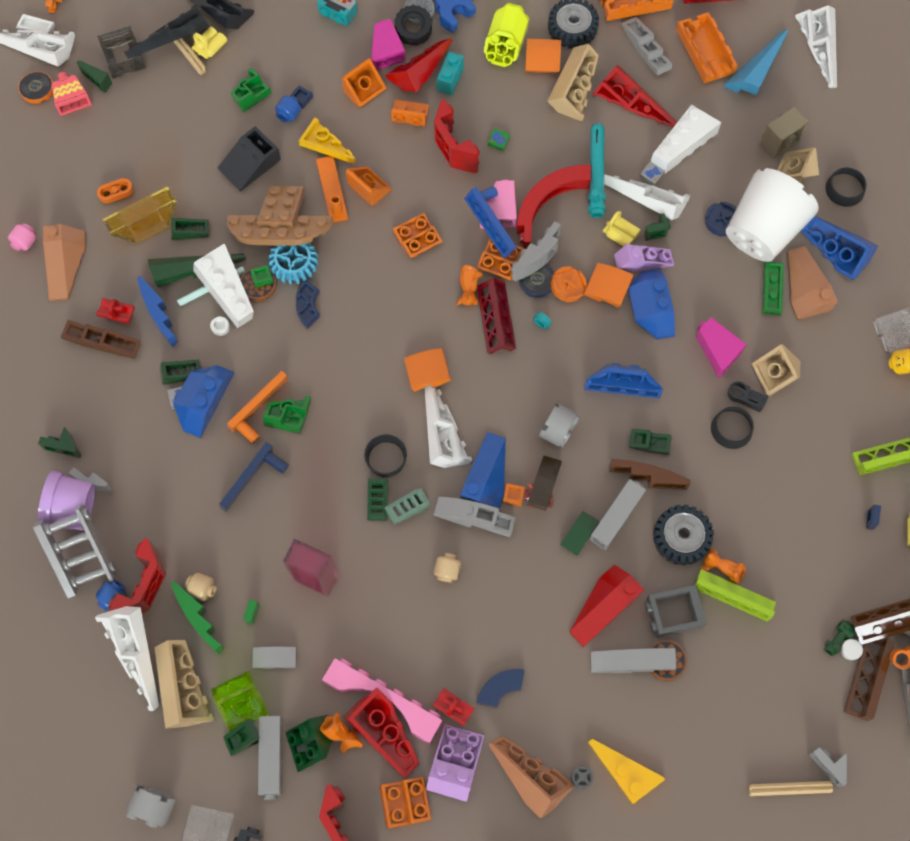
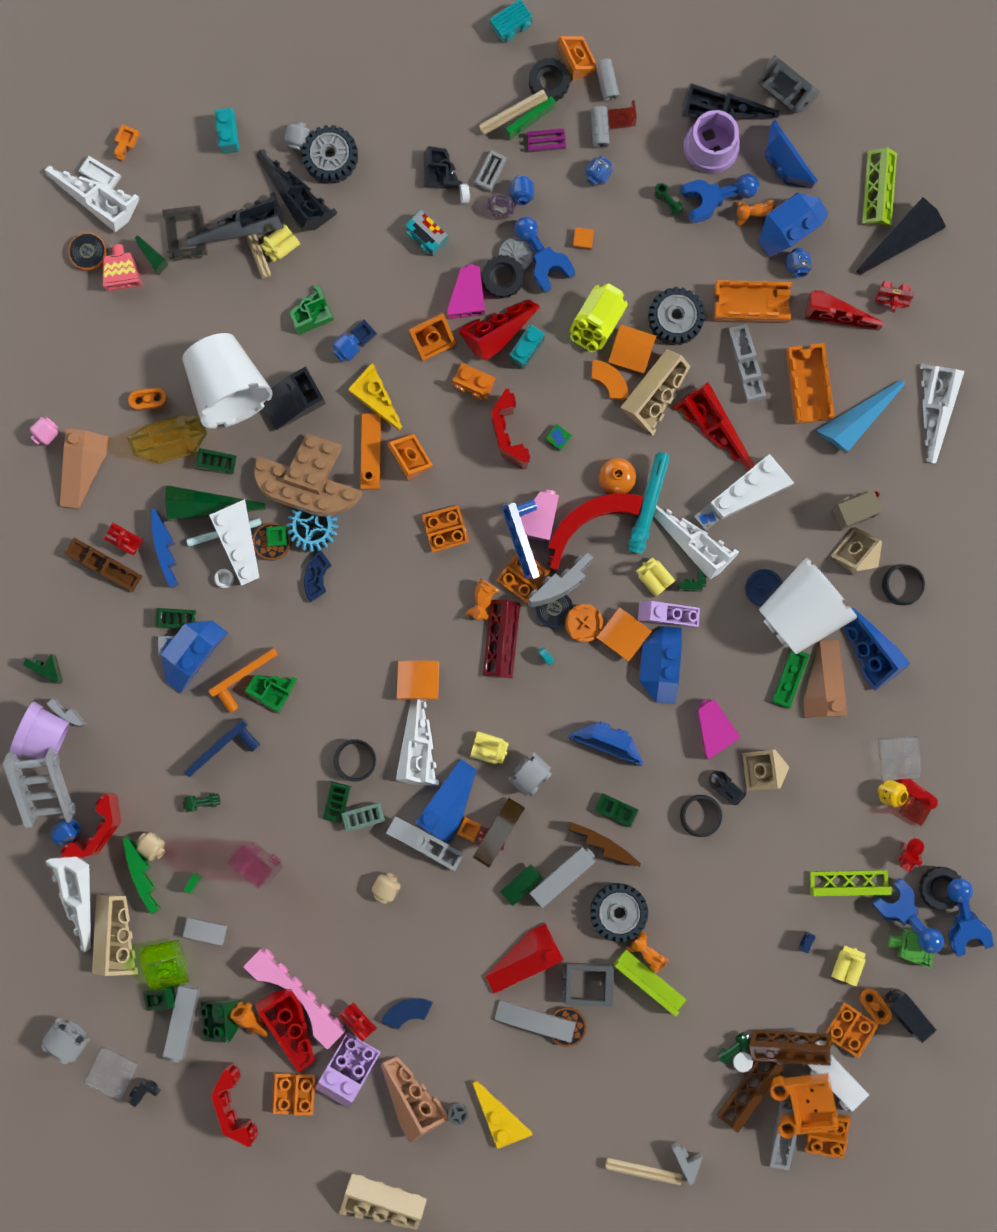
camera: 15 degrees right, 15 degrees up
(184, 152) = (224, 381): none -> white cone
(232, 536) = (191, 803): none -> dark green bar
(512, 415) = (489, 748): none -> light yellow piece
(530, 83) = (610, 379): none -> orange tile
(560, 155) = (611, 483): none -> orange cylinder

